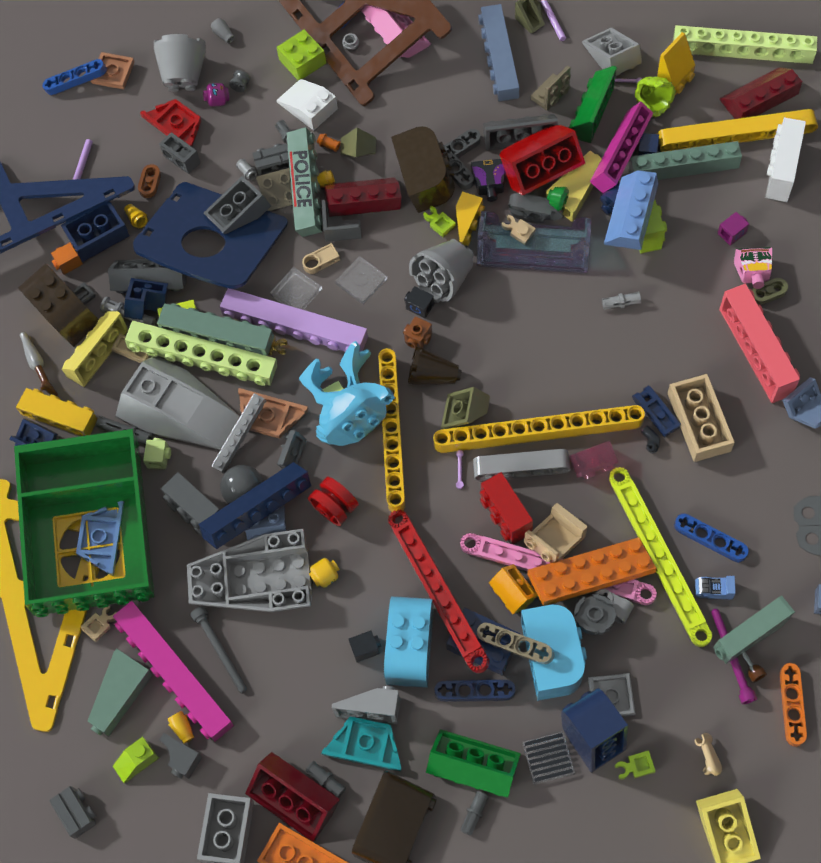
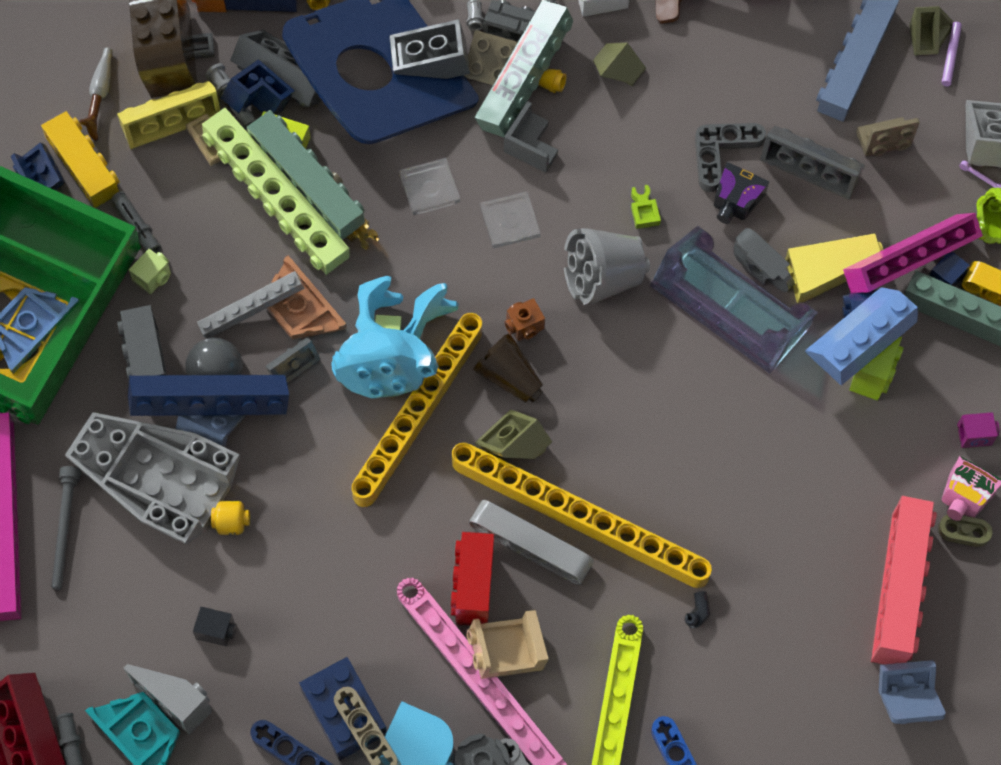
camera: 25 degrees right, 0 degrees up
(175, 405) = (208, 229): light grey wedge -> none
(292, 321) = (400, 219): lavender brick -> none
(324, 140) = (587, 40): orange pin -> none
(325, 256) = (489, 168): tan piece -> none
(333, 501) = (293, 446): red wheel -> none
(363, 197) = (578, 125): dark red slope -> none
(408, 641) = (261, 652): medium azure brick -> none
(419, 301) = (554, 285): black brick -> none
(424, 167) = (667, 136): dark brown brick -> none
(439, 591) = (332, 621): red plate -> none
(459, 484) = (448, 519): lavender hinge -> none
(467, 213) = (679, 220): yellow slope -> none
(513, 589) = (417, 673): light orange brick -> none
(520, 231) = (727, 276): tan plate -> none
(541, 158) = (807, 207): red brick -> none
(558, 197) = (793, 265): green cone -> none
(591, 571) = (516, 712): orange plate -> none
(593, 104) = (921, 183): green slope -> none
(593, 459) = (613, 589): clear pink brick -> none
(621, 300) = (783, 430): light grey pin -> none
(657, 411) = (729, 583): dark blue plate -> none
(700, 418) = (770, 623): tan brick -> none

